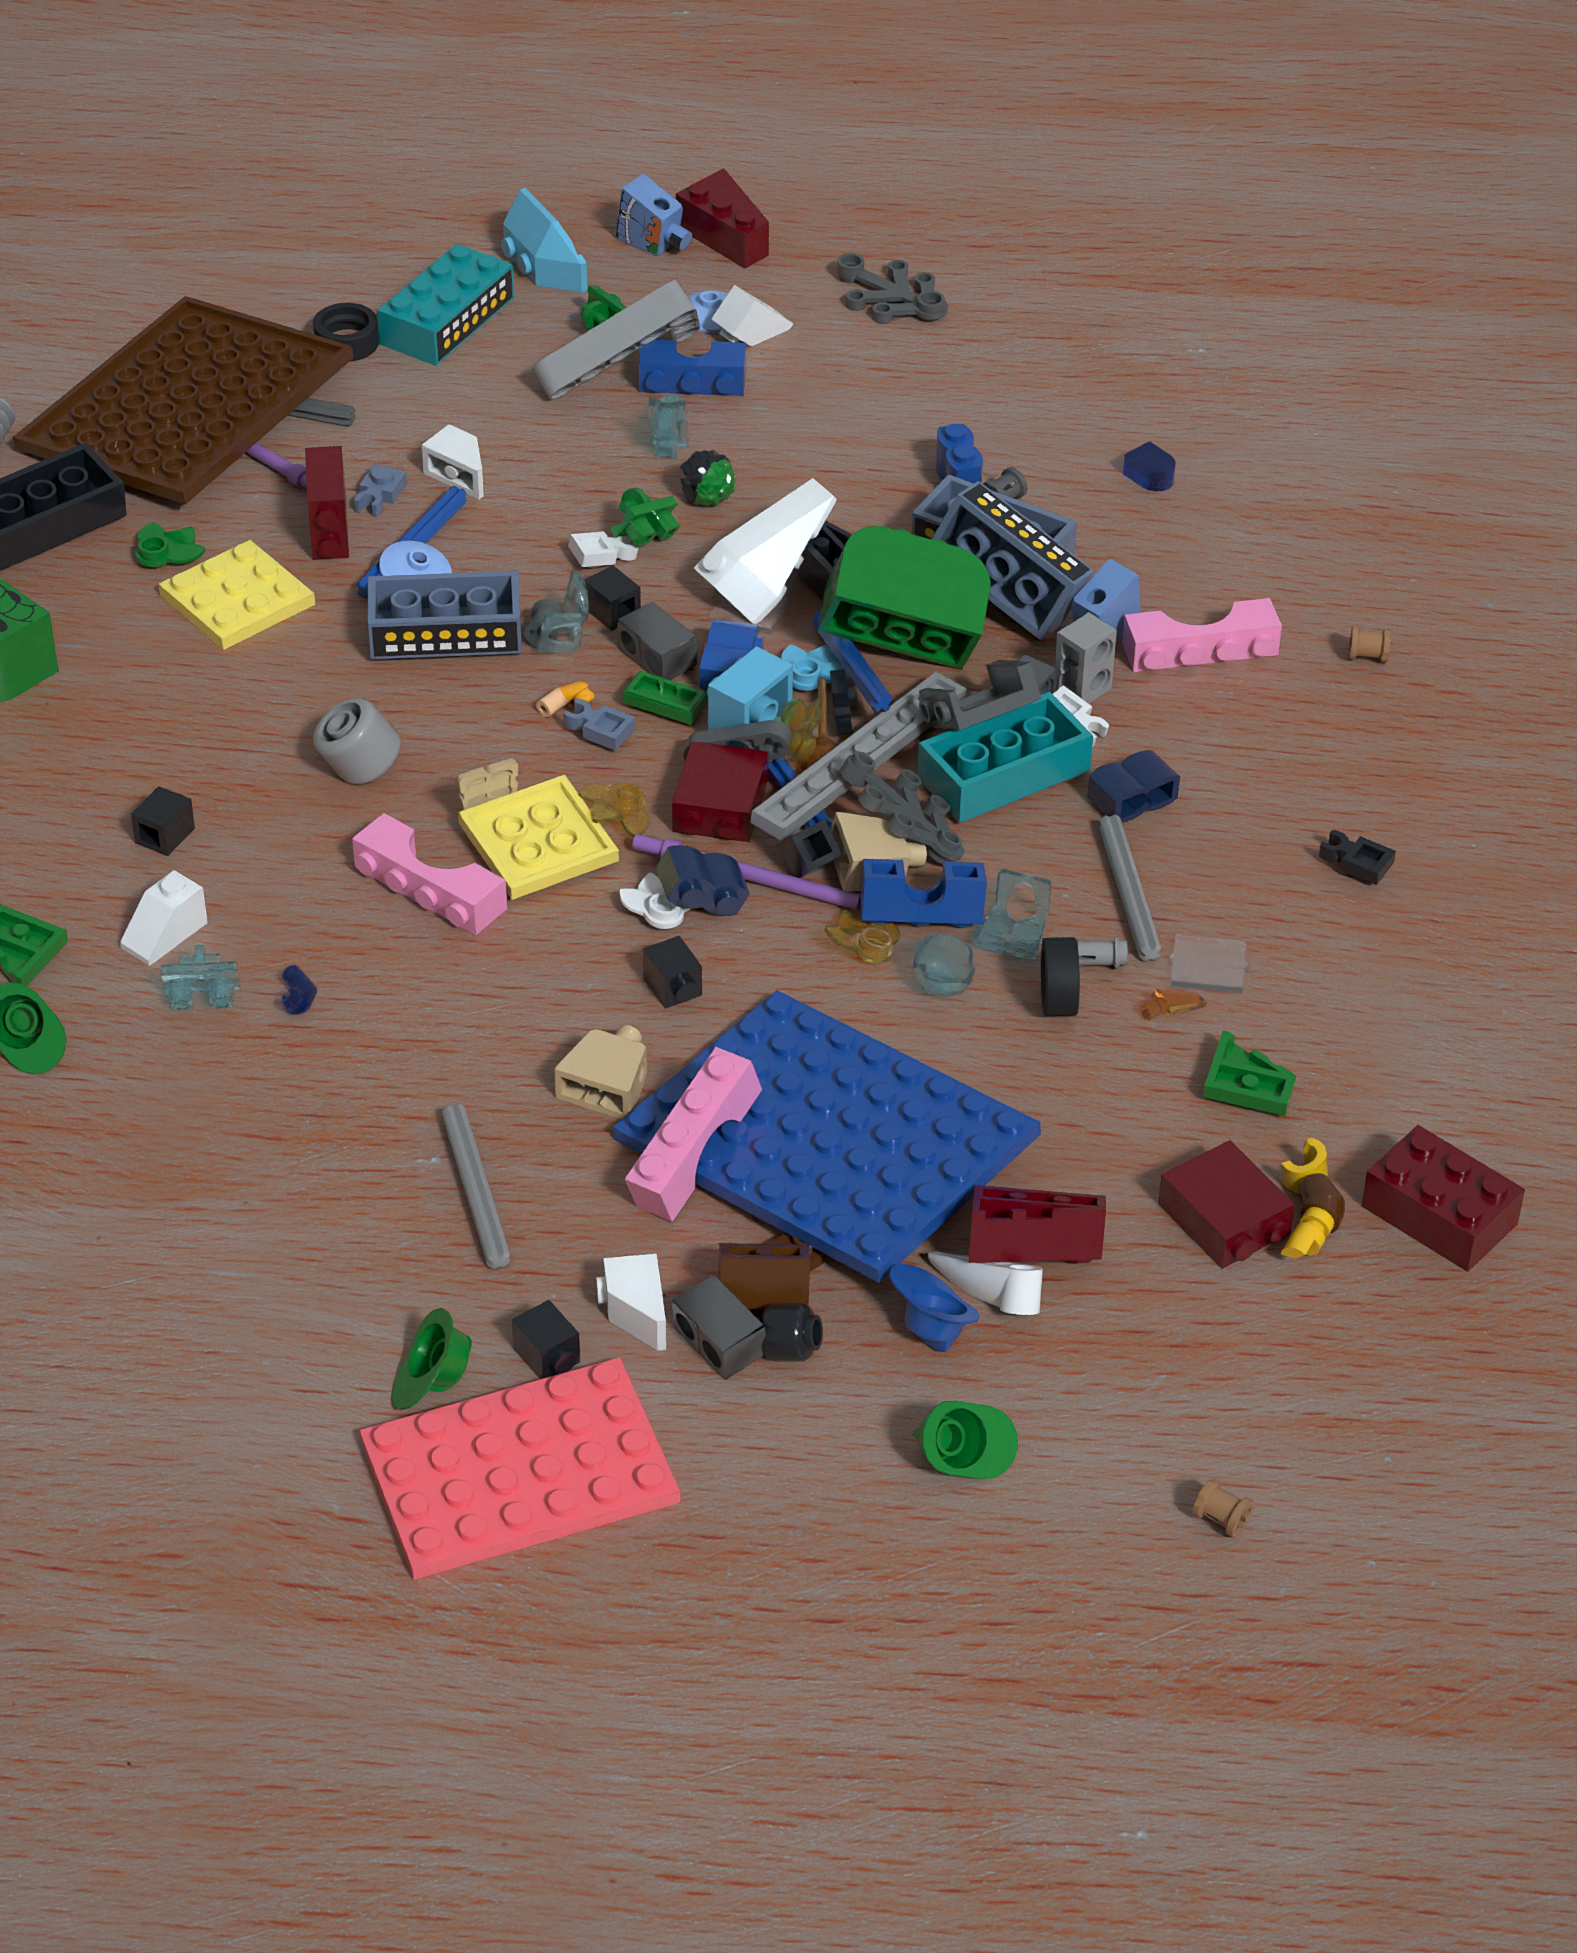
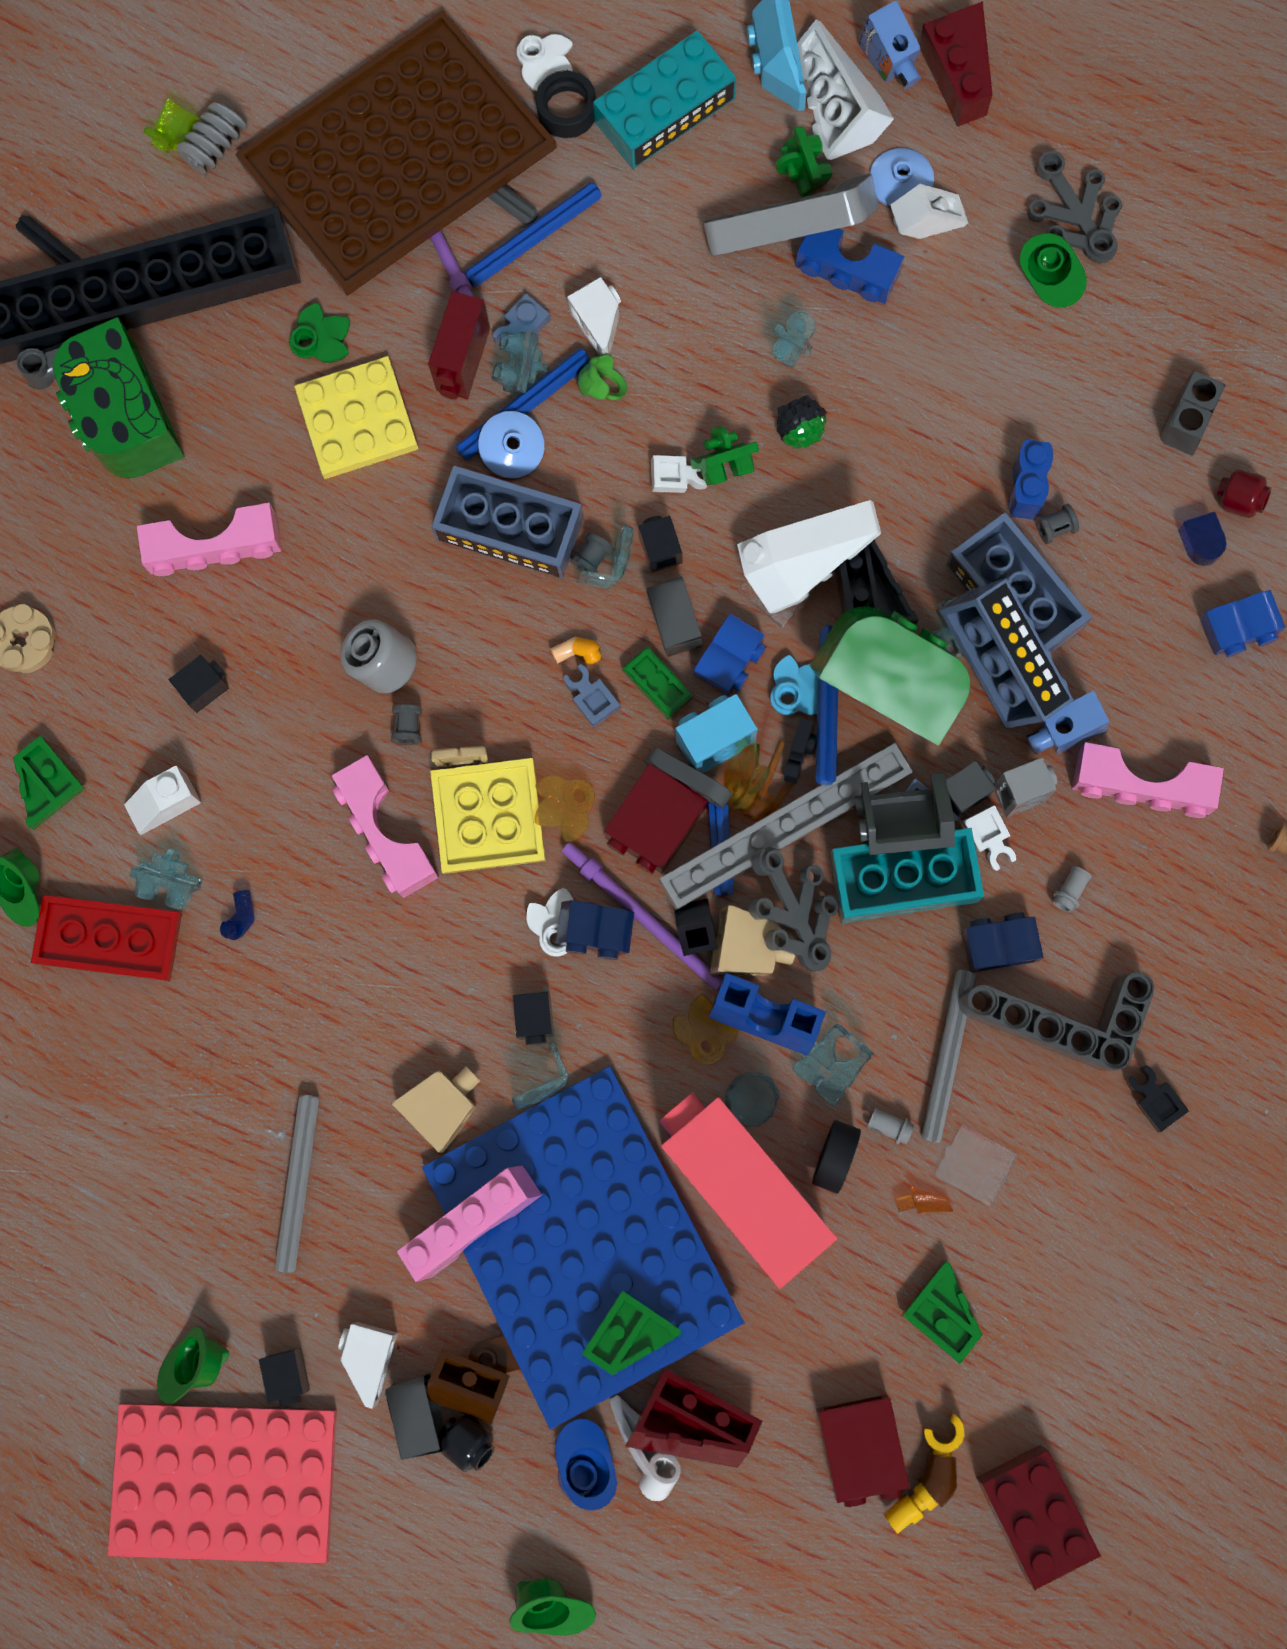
camera: 30 degrees right, 35 degrees up
(83, 729) = (250, 534): none -> bright pink arch
(152, 1046) = (106, 938): none -> red plate
(301, 309) = (549, 59): none -> white plate
(370, 414) = (533, 234): none -> blue axle
(396, 504) = (523, 363): none -> clear light blue hips
(410, 796) = (406, 724): none -> dark grey bush
(482, 495) = (592, 384): none -> bright green piece
(621, 263) = (842, 99): none -> white wedge
(711, 1016) = (546, 1090): none -> clear light blue piece
(895, 323) = (1053, 270): none -> green piece
(922, 1152) = (628, 1335): none -> green wing
(980, 994) = (745, 1188): none -> coral brick
(1082, 402) = (1172, 432): none -> dark grey piece
(1169, 425) = (1244, 493): none -> dark red head
(1176, 738) = (1071, 890): none -> light grey pin
(1224, 509) = (1243, 623): none -> blue brick
(1266, 831) = (1063, 1028): none -> dark grey beam

